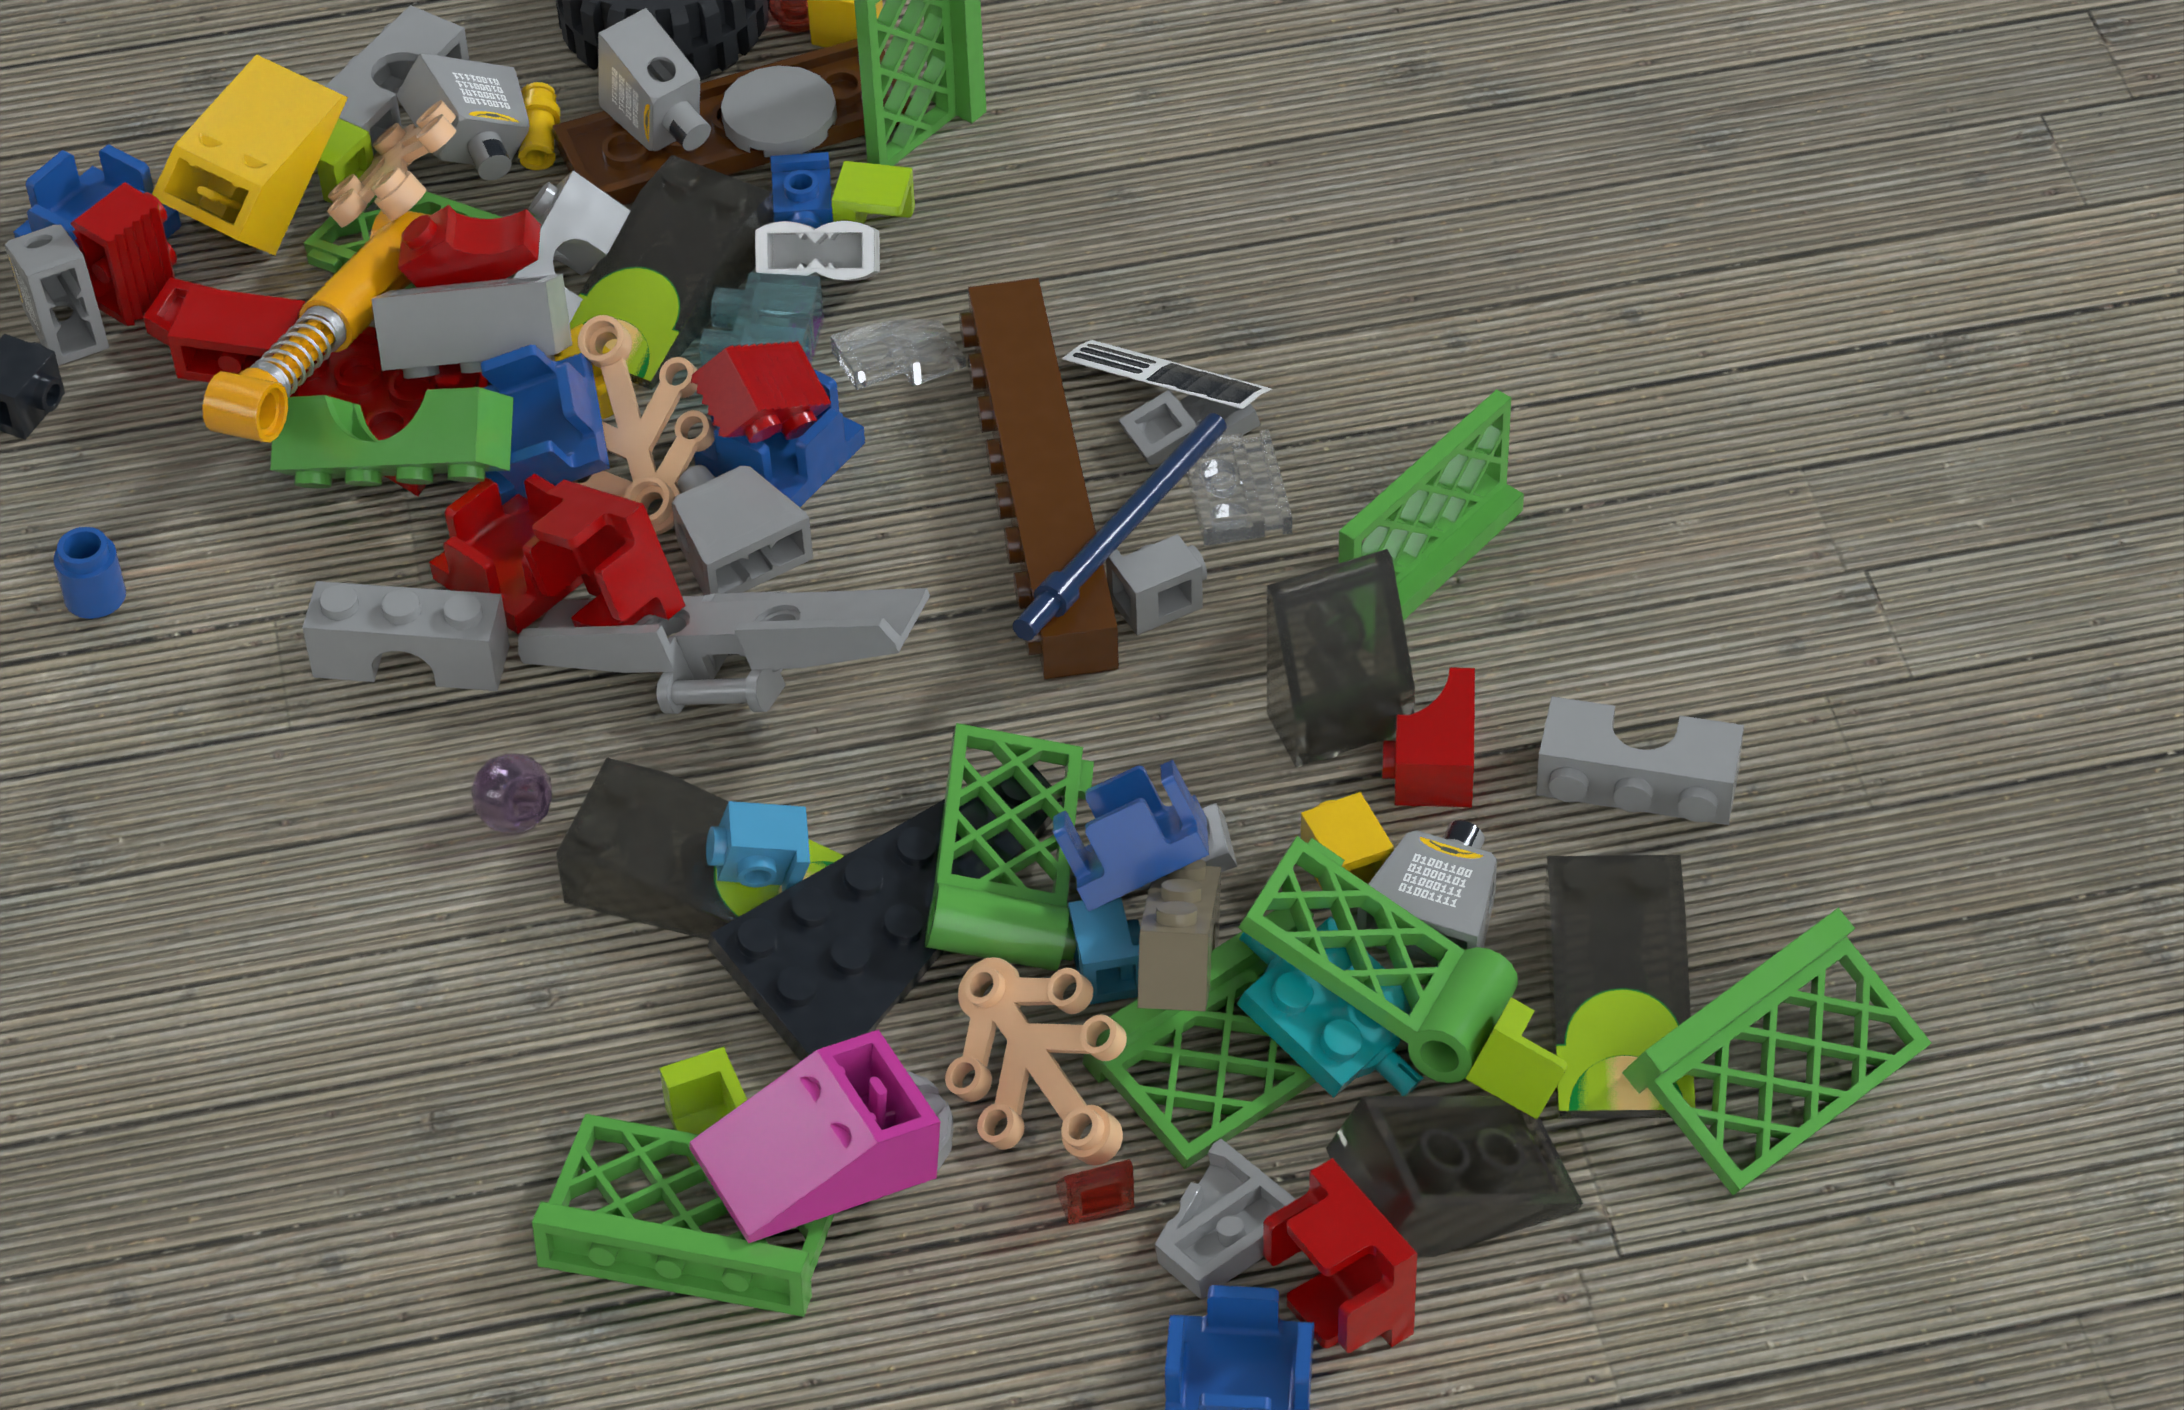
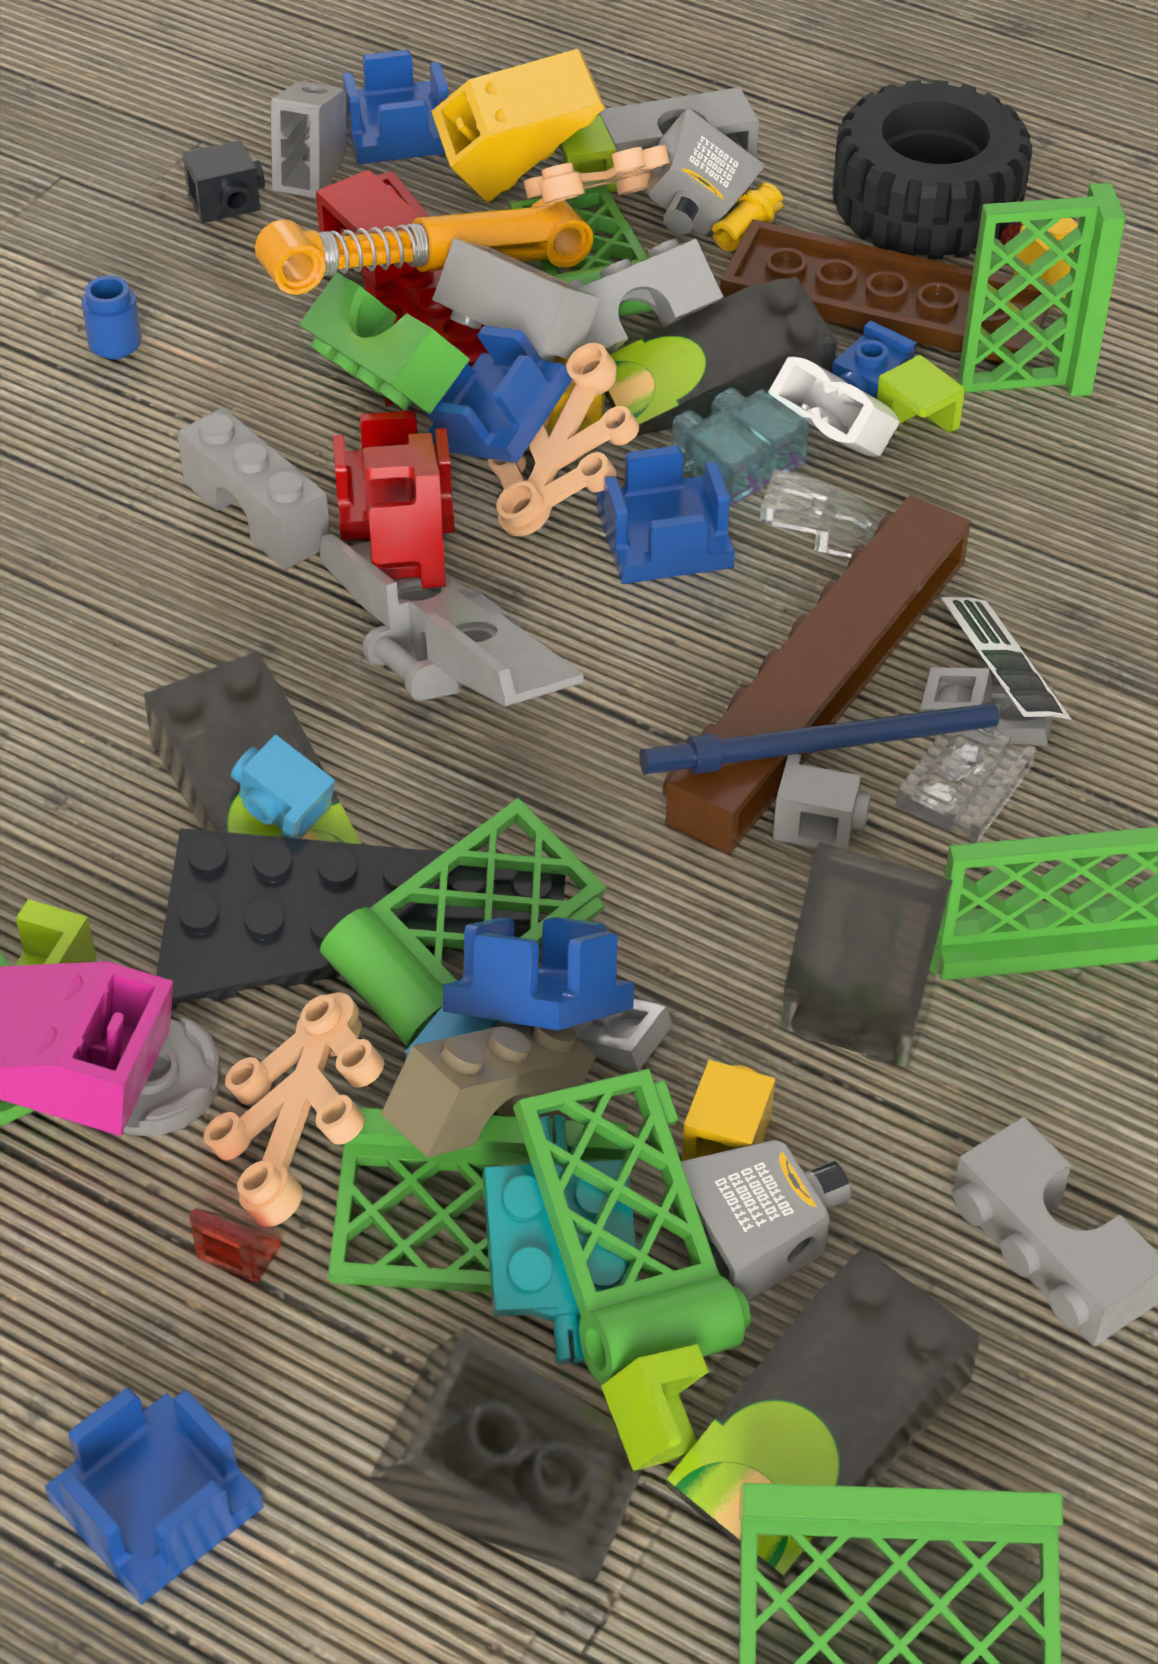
camera: 40 degrees right, 0 degrees up
(125, 251) = (373, 128): red brick -> none
(467, 249) = (562, 244): red arch -> none
(512, 793) = (188, 638): clear purple piece -> none
(649, 84) = (826, 240): light grey torso -> none
(738, 529) = (552, 564): light grey torso -> none
(761, 391) = (655, 465): red brick -> none
(778, 110) = (916, 296): light grey tile -> none
(1219, 1222) = (290, 1351): light grey wing -> none
(1362, 1260) = (318, 1446): red panel -> none
(1436, 748) = (896, 1094): red arch -> none

